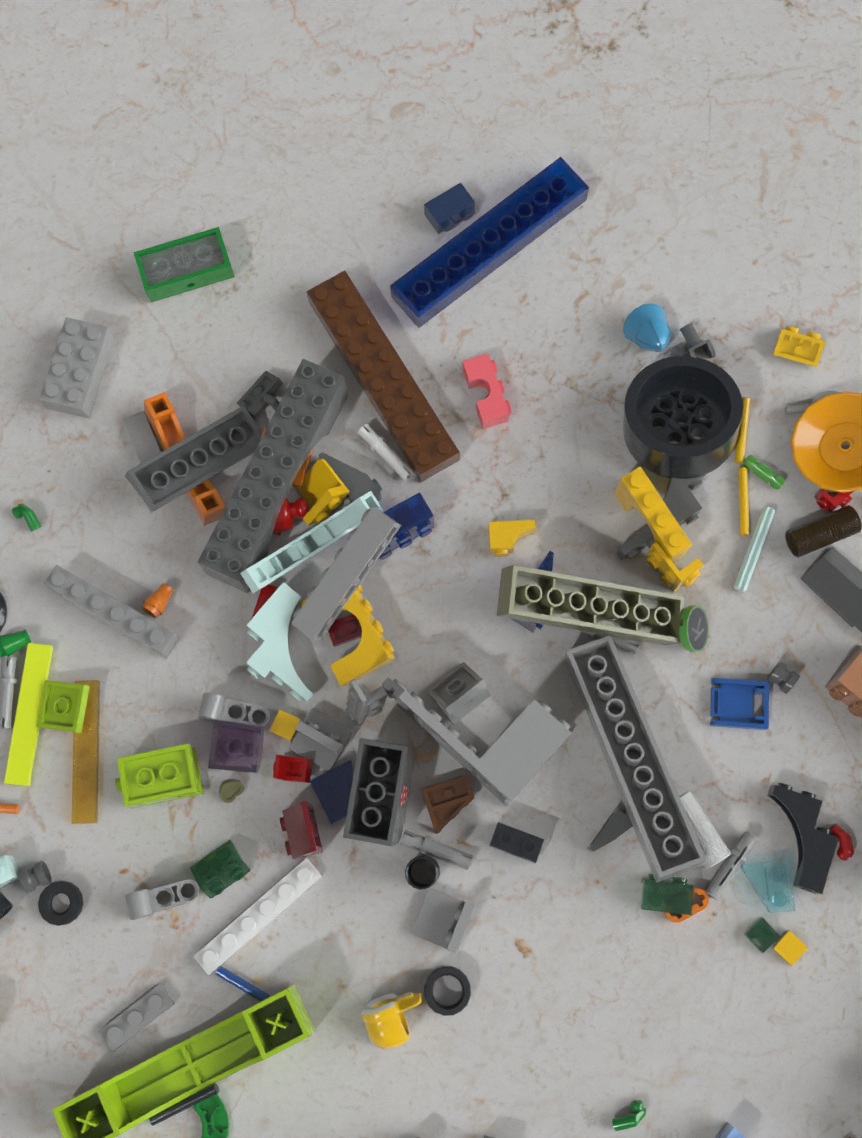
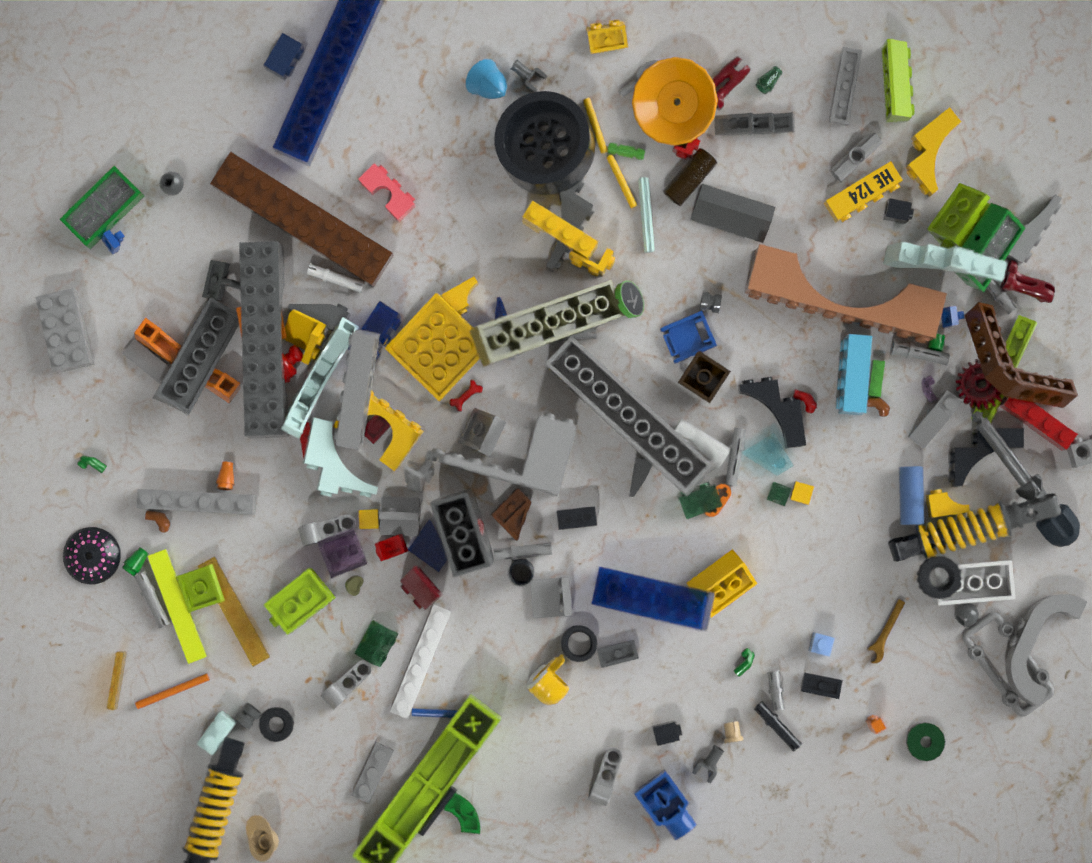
camera: 30 degrees left, 10 degrees up
(64, 611) = (160, 518): none -> dark orange arm
(177, 304) = (112, 241): none -> blue tile
(268, 275) = (171, 183): none -> dark grey piece
(449, 647) = (458, 402): none -> red piece
(455, 575) = (435, 347): none -> yellow plate
(486, 1026) = (617, 653): none -> dark grey plate
(561, 984) = (653, 598): none -> clear blue brick
(647, 1006) = (726, 578): none -> yellow slope
(739, 755) = (704, 376): none -> dark brown brick

